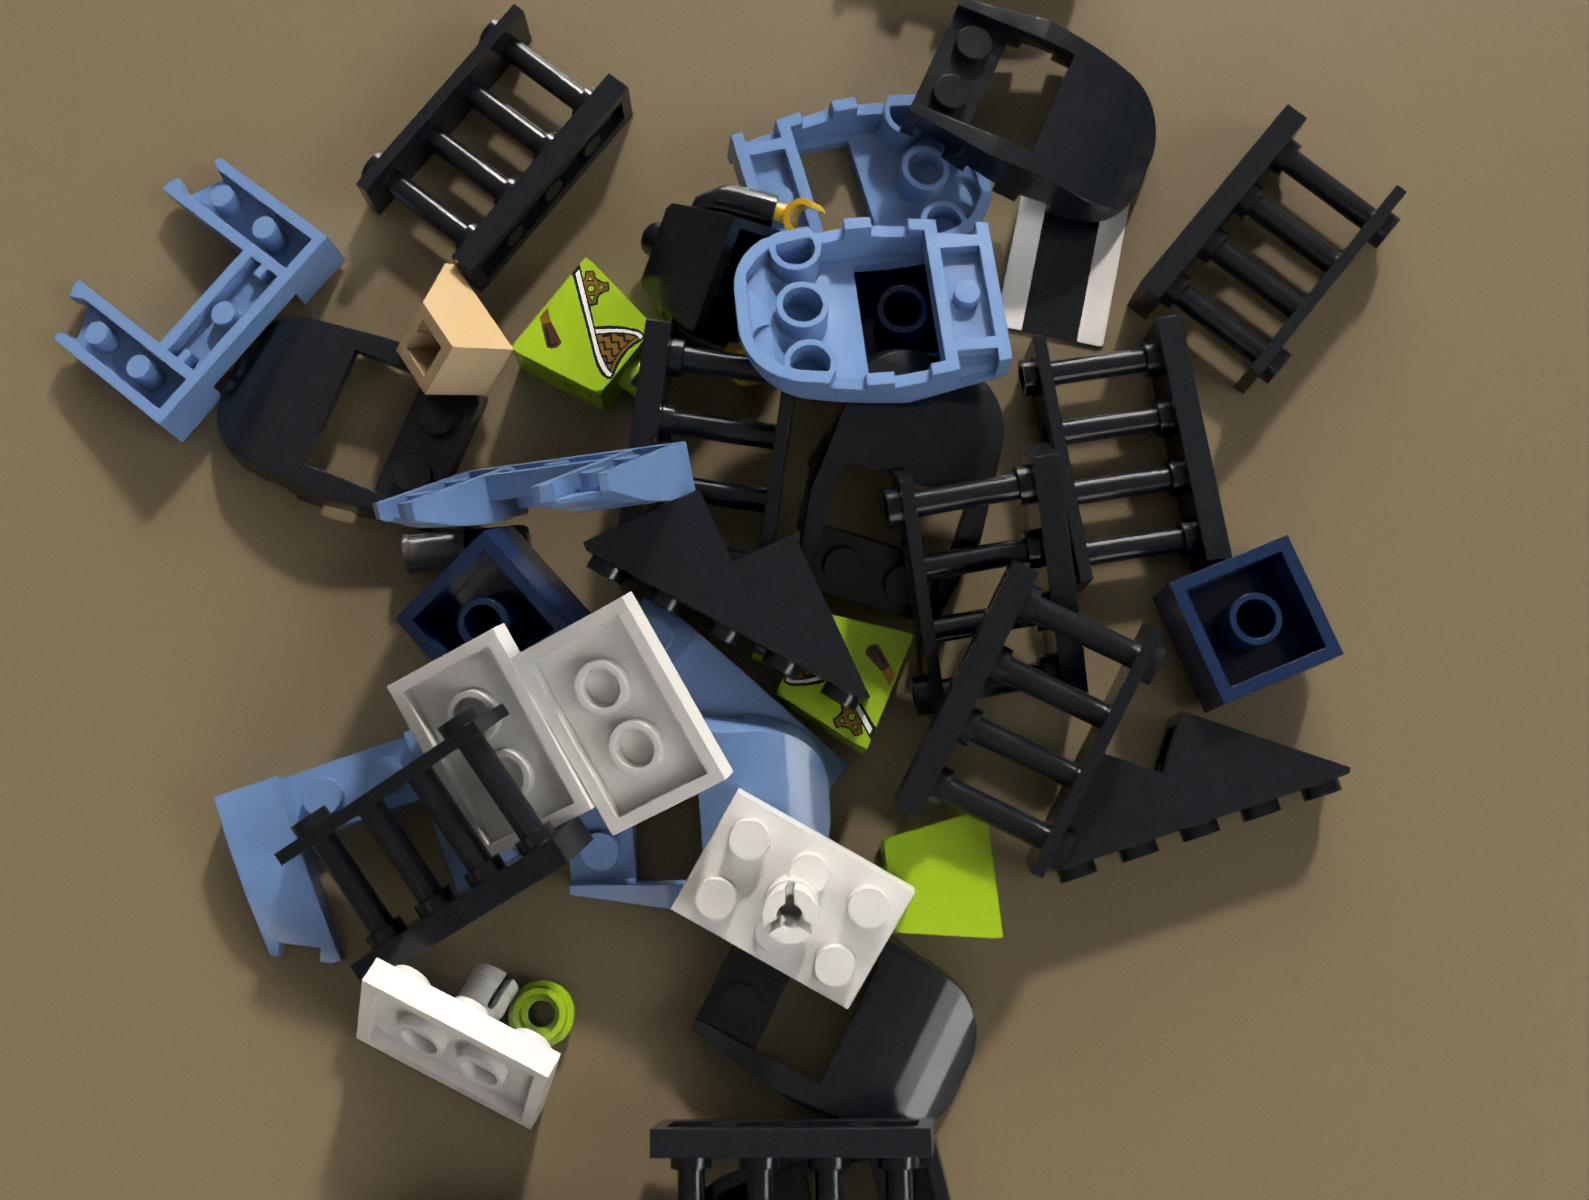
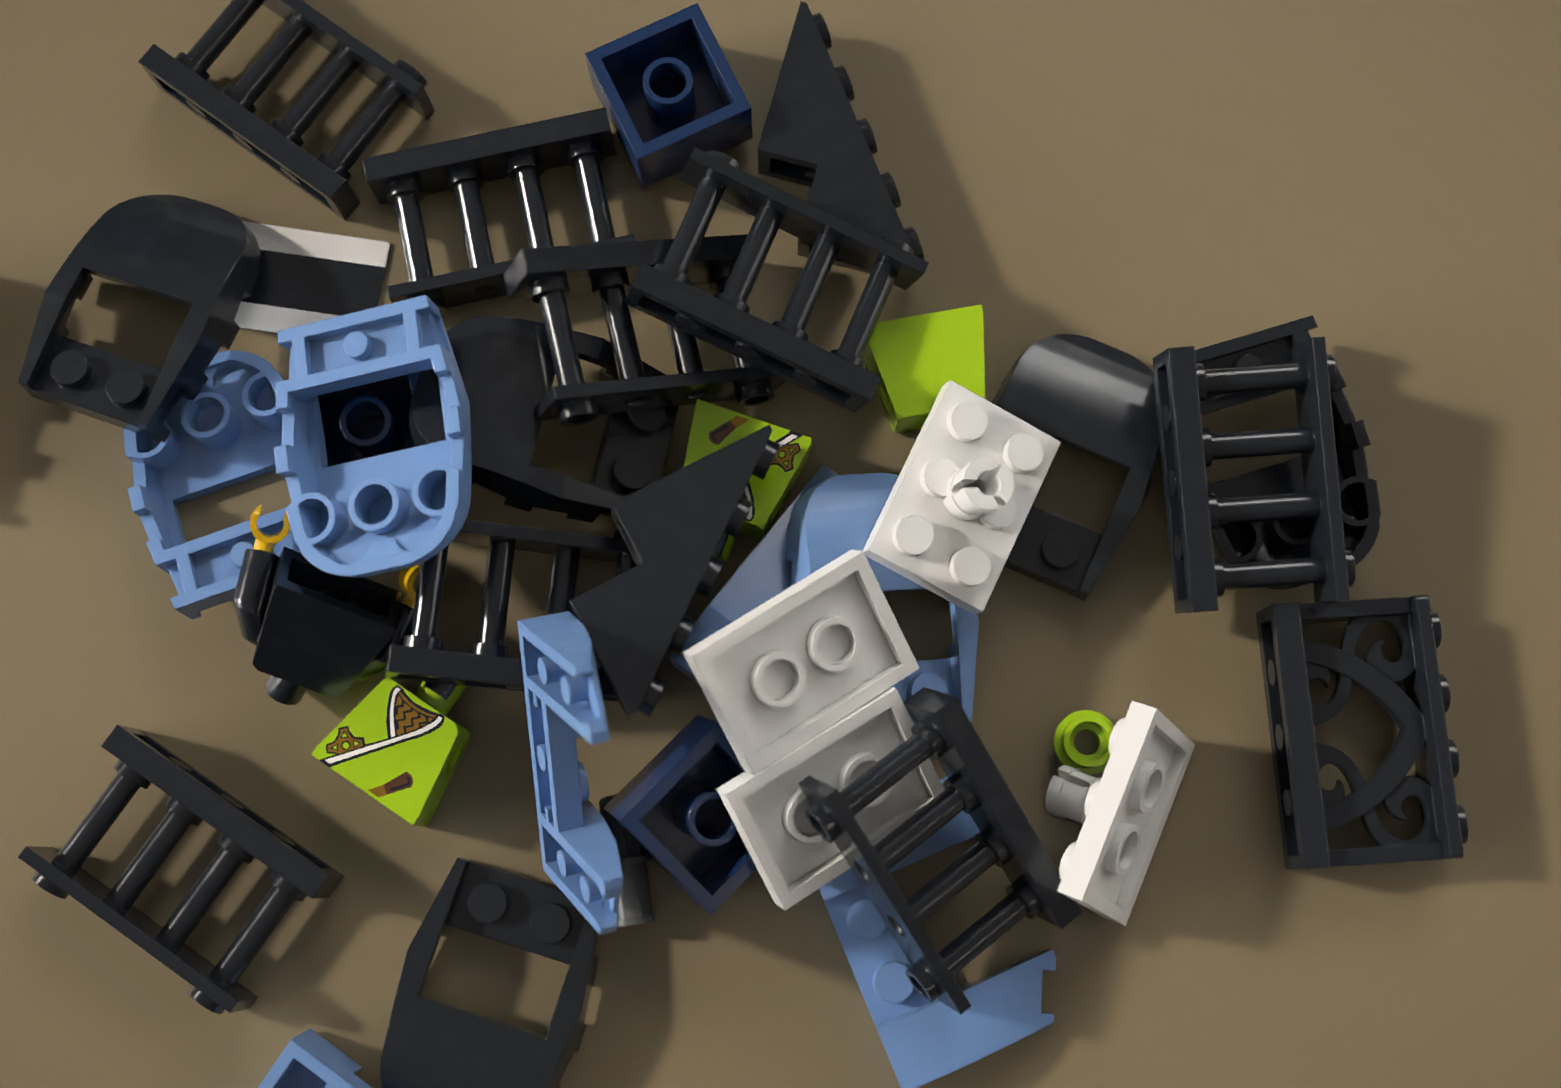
camera: 90 degrees left, 0 degrees up
(454, 340) = (402, 890): tan slope -> none

